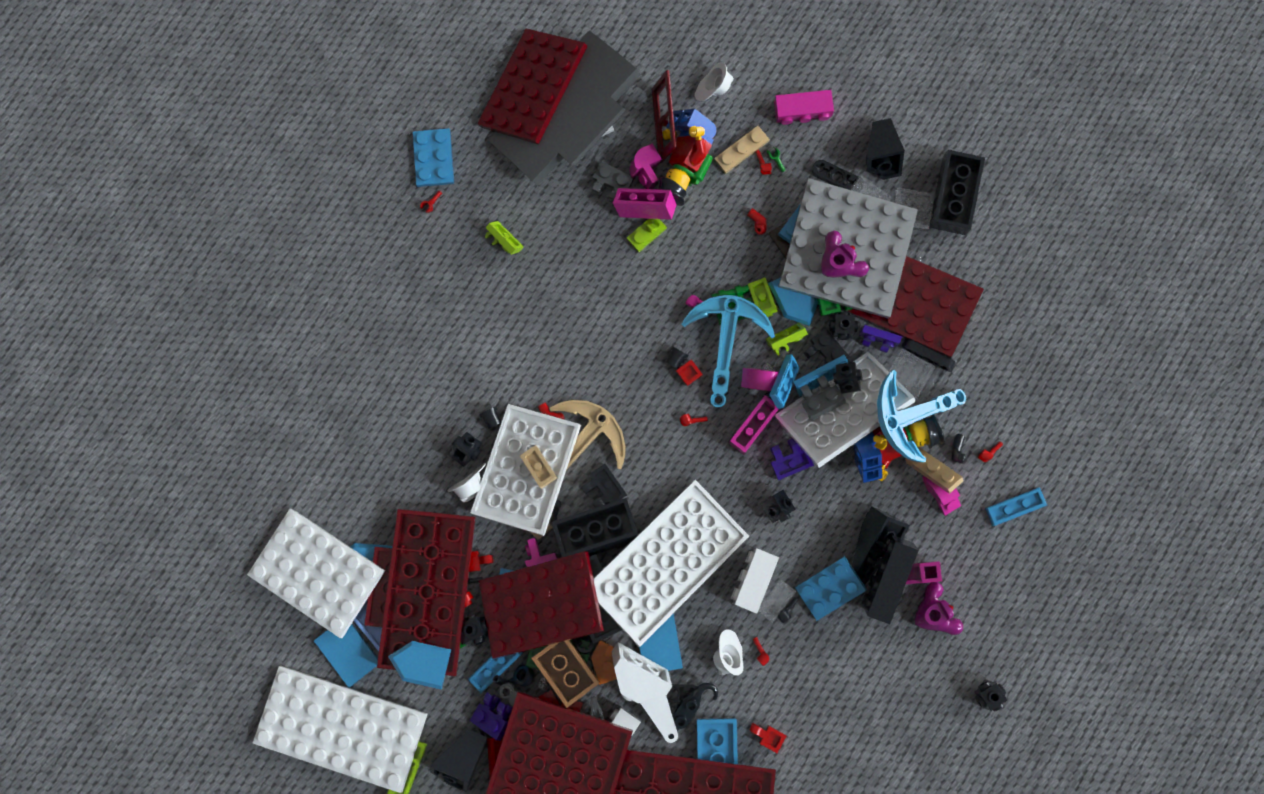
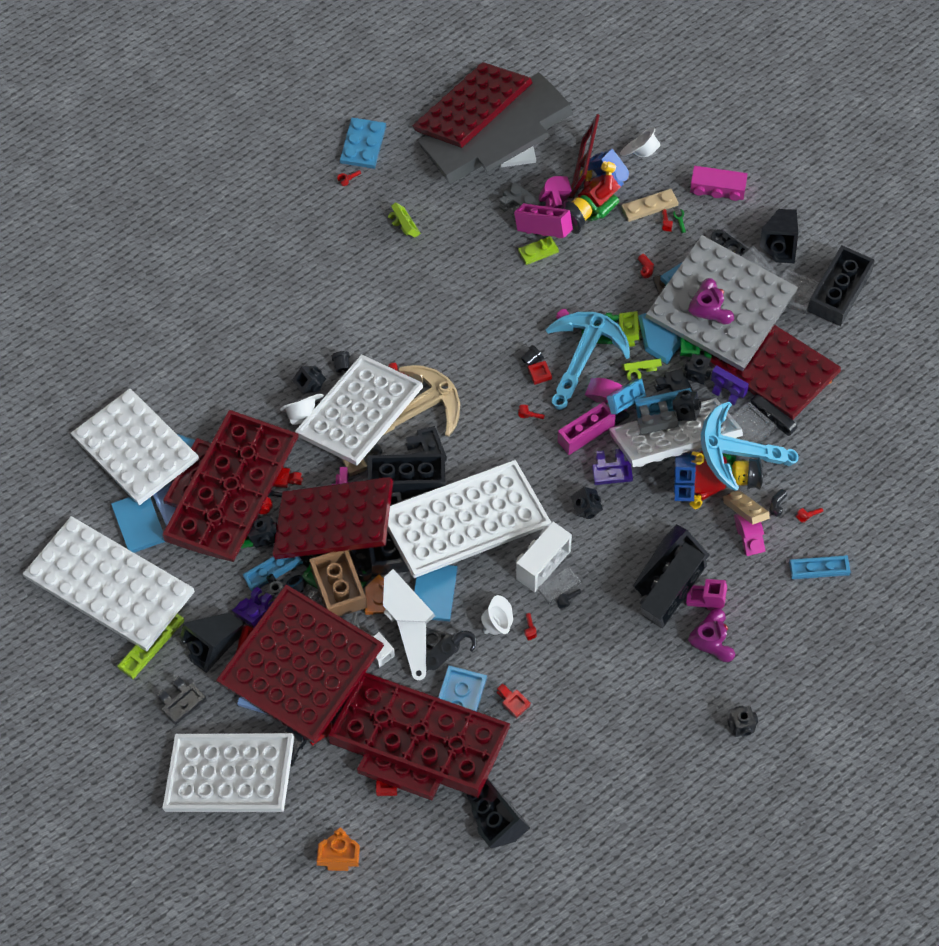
camera: 15 degrees right, 20 degrees down
(421, 664) = (205, 540): dark azure tile -> none
(538, 466) = (371, 404): tan plate -> none
(830, 588) = (615, 585): dark azure plate -> none

